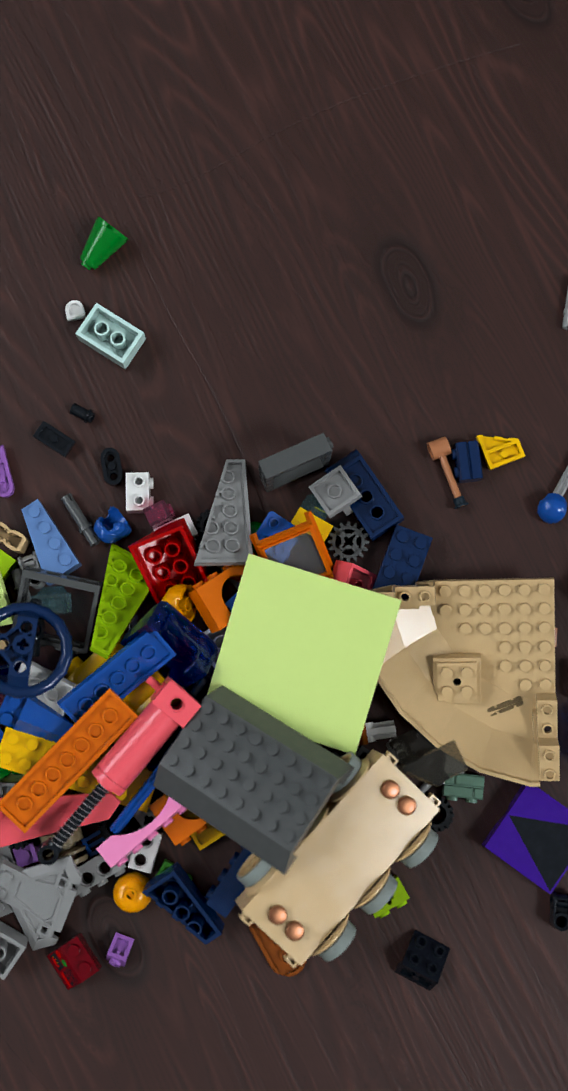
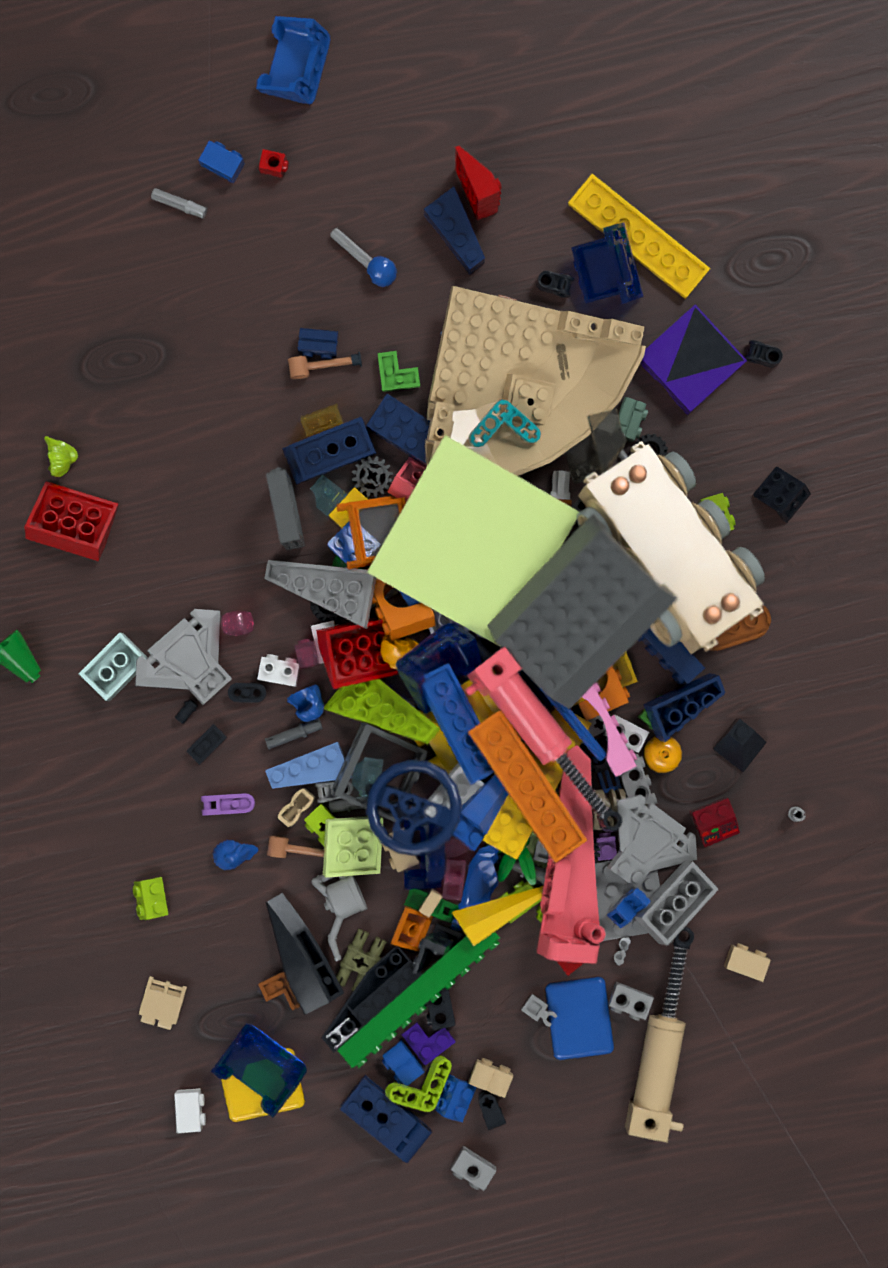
camera: 75 degrees left, 5 degrees up
(74, 311) = (78, 698): white tile -> none
(99, 1041) = (792, 811): none -> light grey pin
(119, 950) = (713, 776): medium lavender bracket -> none
(132, 401) = (186, 658): none -> light grey plate
(157, 970) = (740, 744): none -> black slope
(176, 442) = (237, 623): none -> clear pink gear
(242, 266) = (71, 521): none -> red slope
(301, 243) = (60, 456): none -> lime hair
(335, 492) = (322, 477): light grey bracket -> none
(392, 481) = (322, 420): none -> clear yellow brick
(434, 660) = (507, 419): none -> teal beam
(450, 542) = (393, 378): none -> bright green plate
(499, 450) = (313, 309): yellow wing -> none

